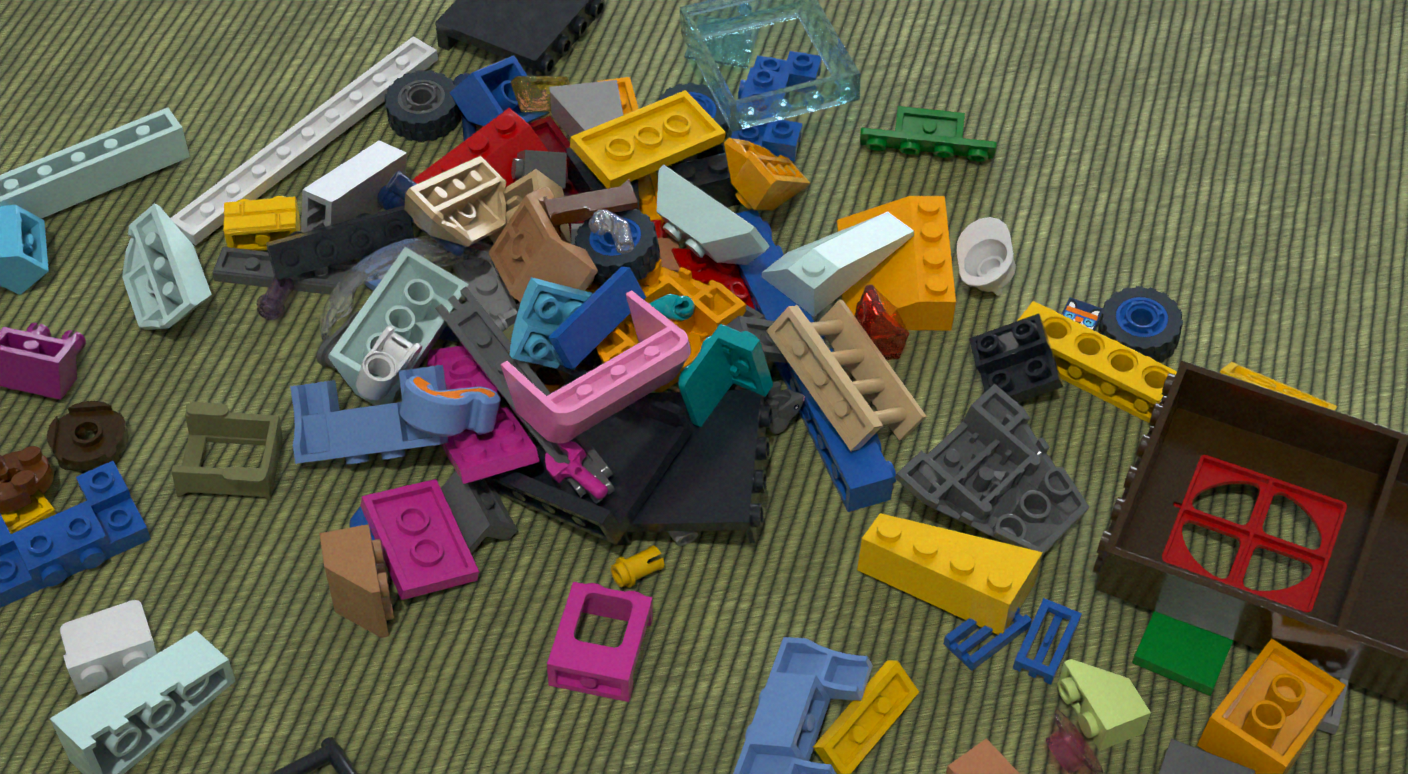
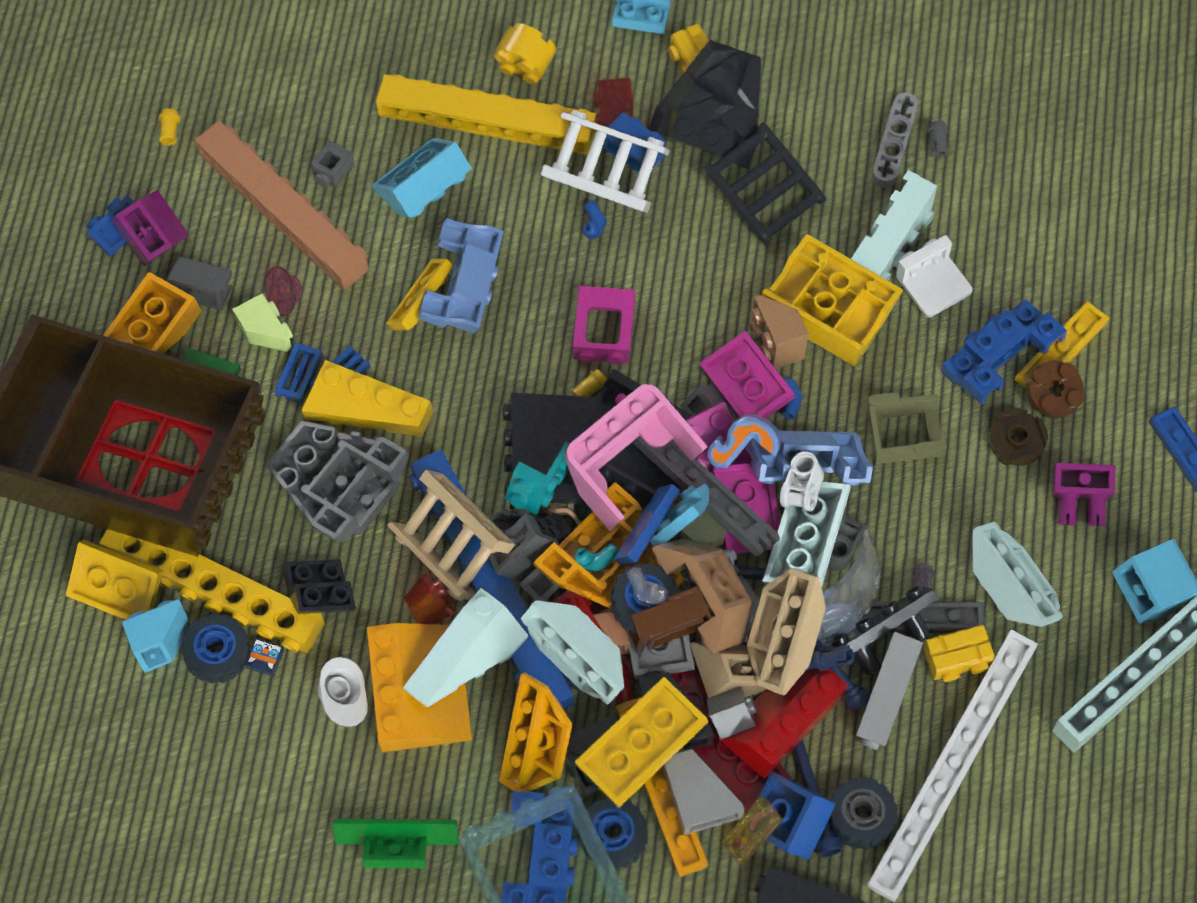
camera: 175 degrees right, 15 degrees up
(271, 622) = (835, 298): none -> yellow piece
(1219, 327) = (157, 634): none -> medium azure slope

